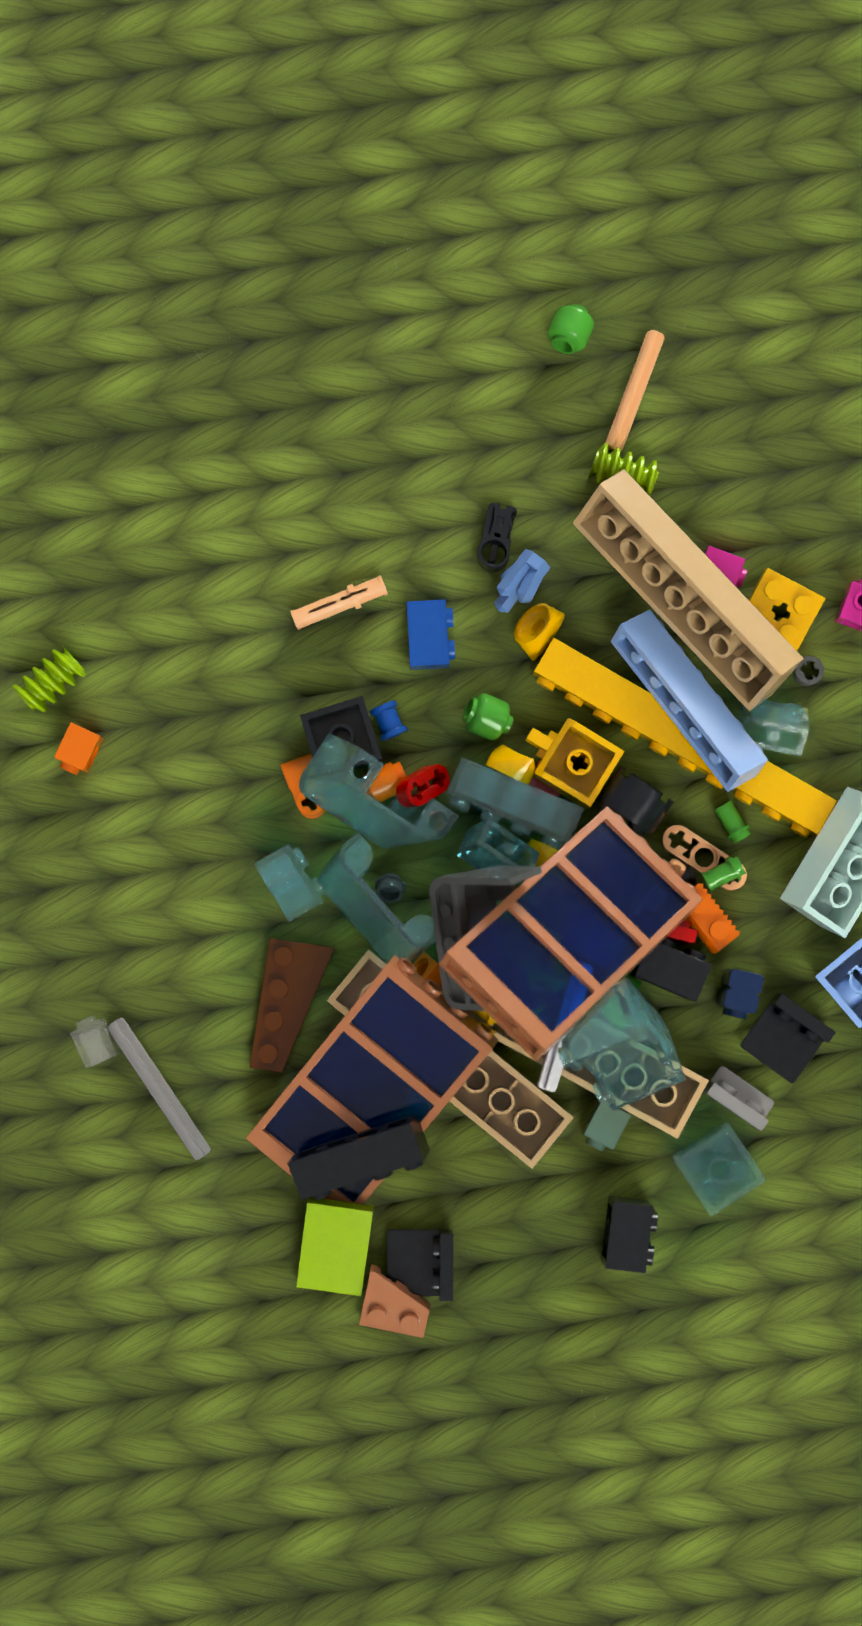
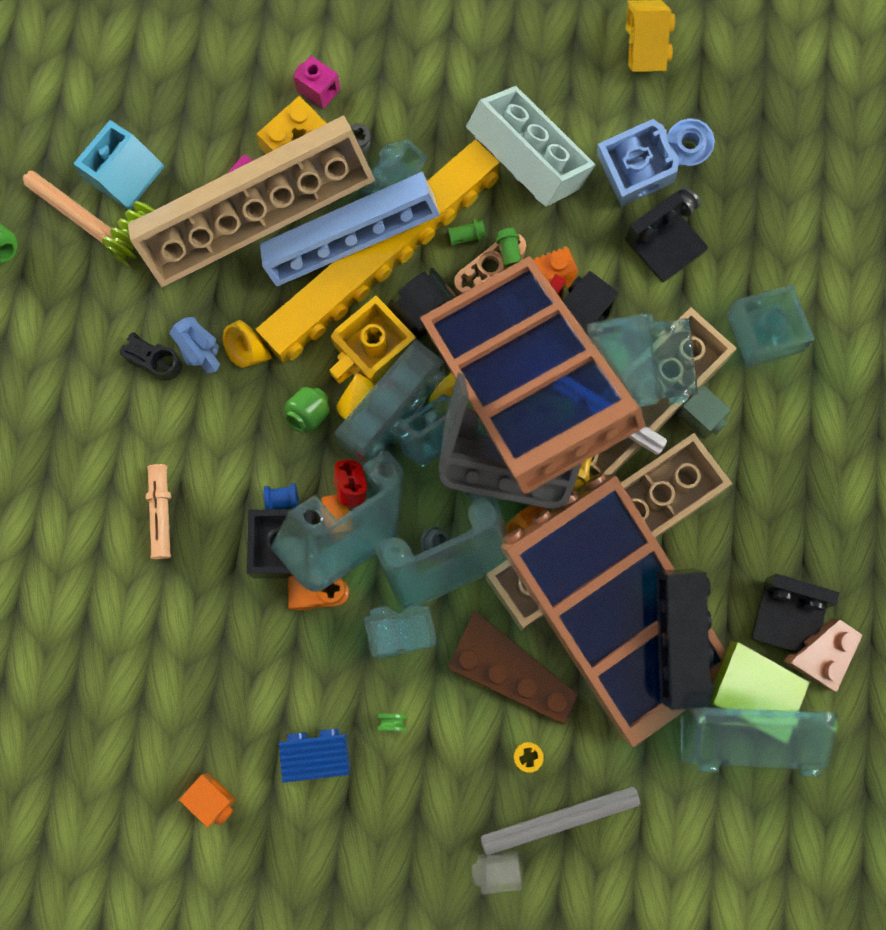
camera: 65 degrees left, 10 degrees down
(49, 680) = (132, 809): lime piece -> none
(148, 836) = (314, 757): none -> blue brick
(202, 900) = (391, 722): none -> bright green bush
(207, 1051) = (537, 763): none -> yellow bush
(285, 1254) = (757, 739): none -> clear light blue windscreen
(429, 635) = (215, 439): blue brick -> none
(628, 1234) = (812, 418): black brick -> none
(694, 429) = (118, 165): none -> medium azure slope
(739, 992) = (619, 261): dark blue brick -> none
(739, 1097) = (712, 291): light grey bracket -> none
(838, 1046) = (690, 203): none -> dark grey bush

